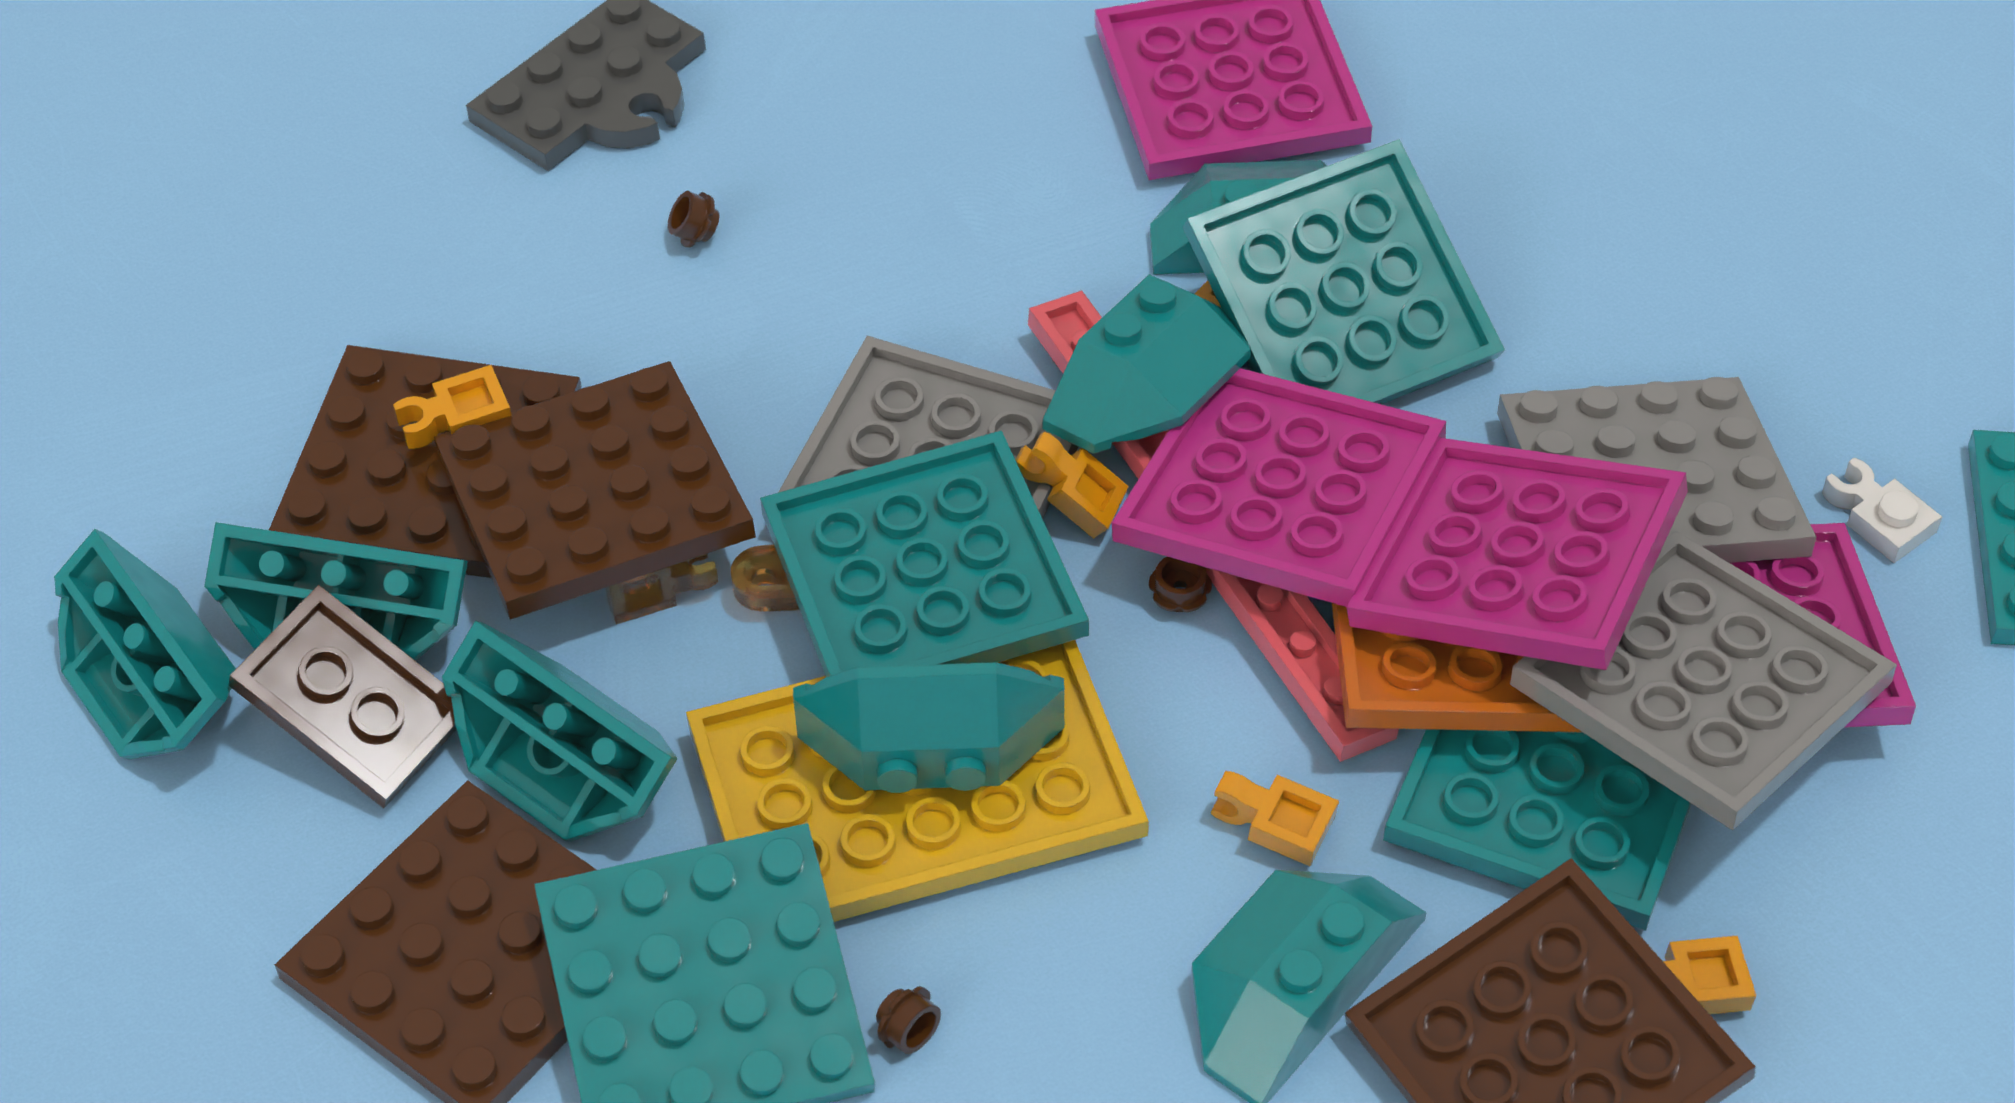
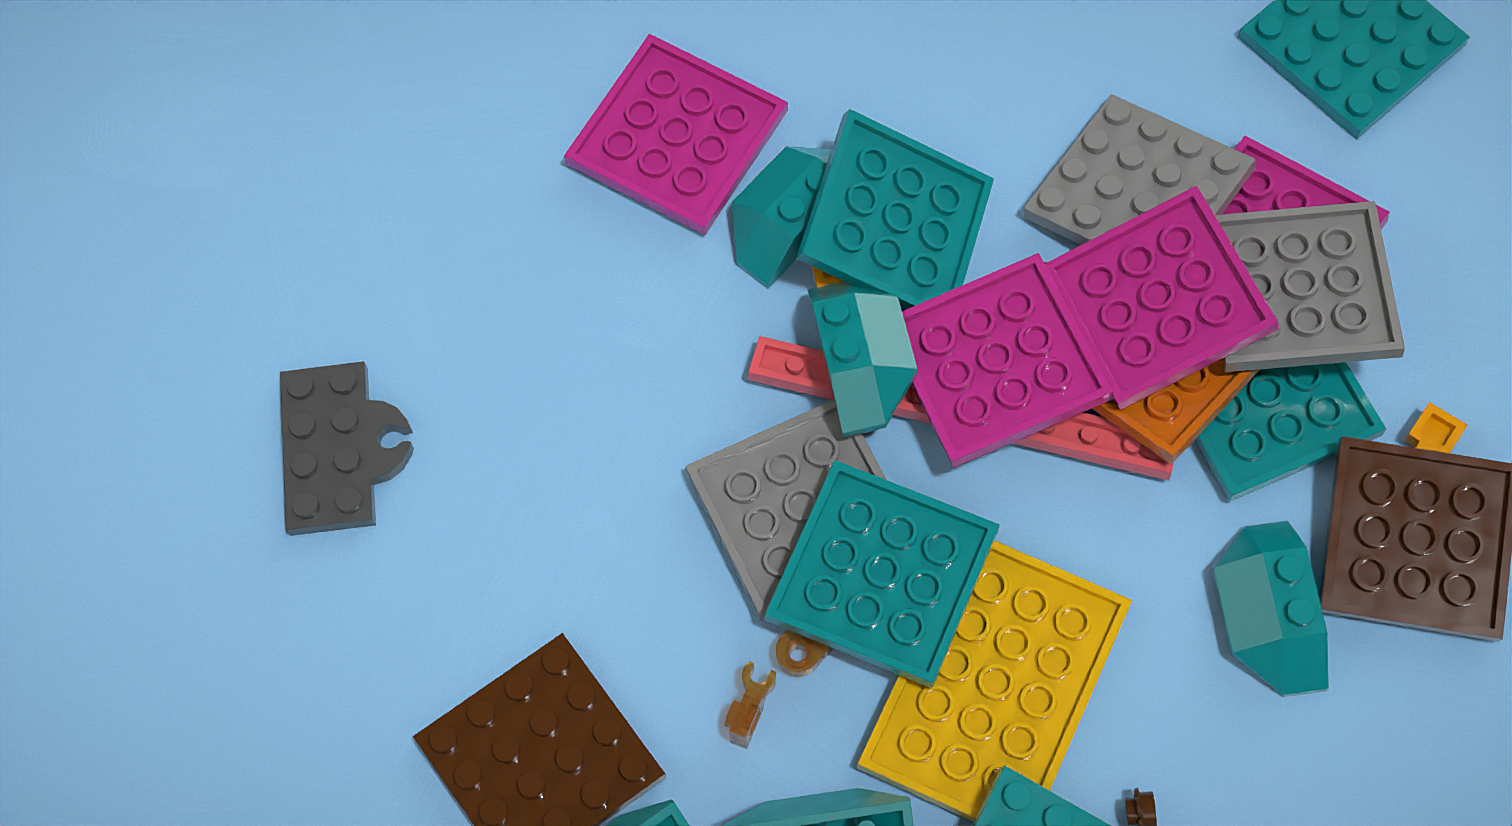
camera: 45 degrees left, 15 degrees up
(458, 402) = (540, 712): light orange plate -> none
(593, 489) = (668, 692): reddish brown plate -> none
(693, 218) = (503, 481): reddish brown plate -> none
(930, 723) = (996, 661): teal wedge -> none
(1080, 483) = (892, 449): light orange plate -> none
(1178, 573) = (994, 470): reddish brown plate -> none
(1282, 818) = (1181, 533): light orange plate -> none
(1884, 516) = (1249, 110): white plate -> none

